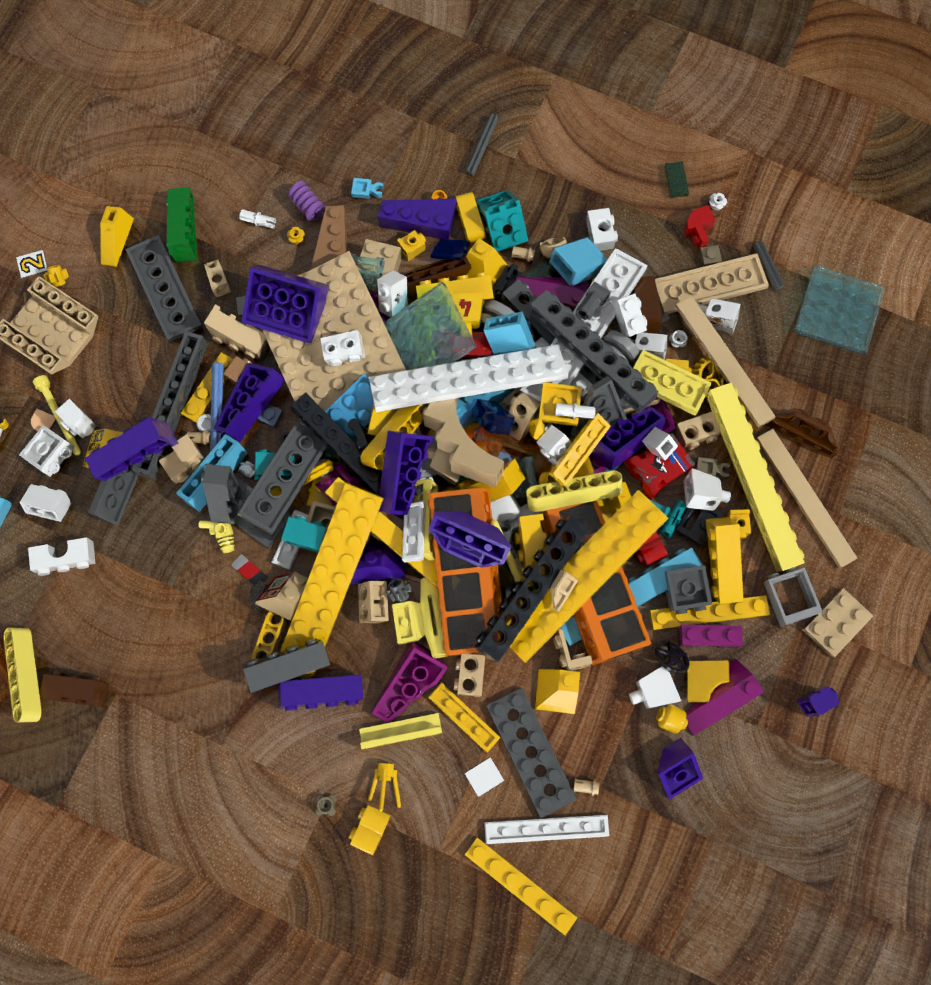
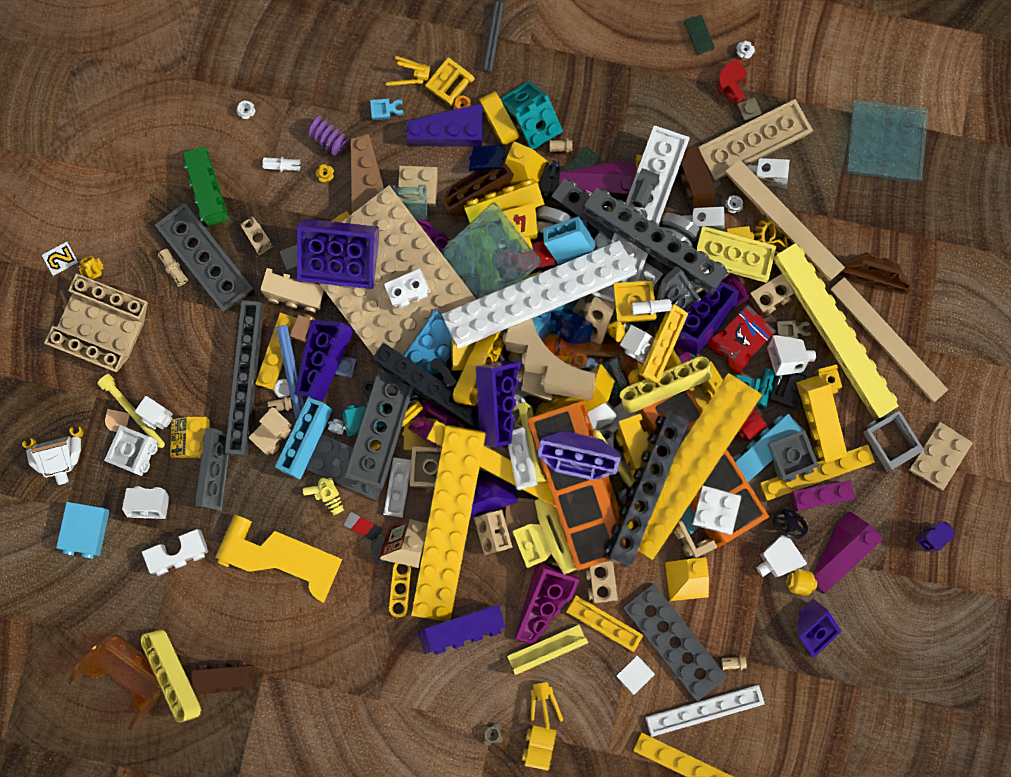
camera: 15 degrees left, 5 degrees up
(114, 232) = (139, 209): yellow slope -> none
(130, 448) = (222, 434): dark purple wedge -> none
(132, 291) = (172, 267): none -> tan pin
(163, 579) = (280, 553): none -> yellow door
(221, 493) = (322, 459): dark grey wedge -> none
(237, 160) = (245, 105): none -> white plate
(285, 665) = (425, 612): dark grey wedge -> none
(304, 534) = (414, 482): teal brick -> none
(392, 293) = (442, 220): white brick -> none
(398, 590) = (516, 516): dark grey gear -> none
(407, 162) = (421, 72): none -> yellow plant
(409, 248) = (446, 166): yellow brick -> none
(429, 171) = (444, 79): none -> yellow plate
(548, 246) = (590, 134): tan hair -> none
(562, 588) = (674, 484): tan tile -> none
(578, 261) = (619, 145): medium azure brick -> none
(599, 625) = (716, 510): none -> white plate
(601, 219) = (634, 116): white brick -> none
(629, 315) = (683, 195): white brick -> none
(660, 443) = (738, 319): white brick -> none
(705, 677) = (824, 536): yellow tile -> none
(768, 265) = (808, 108): dark grey axle -> none

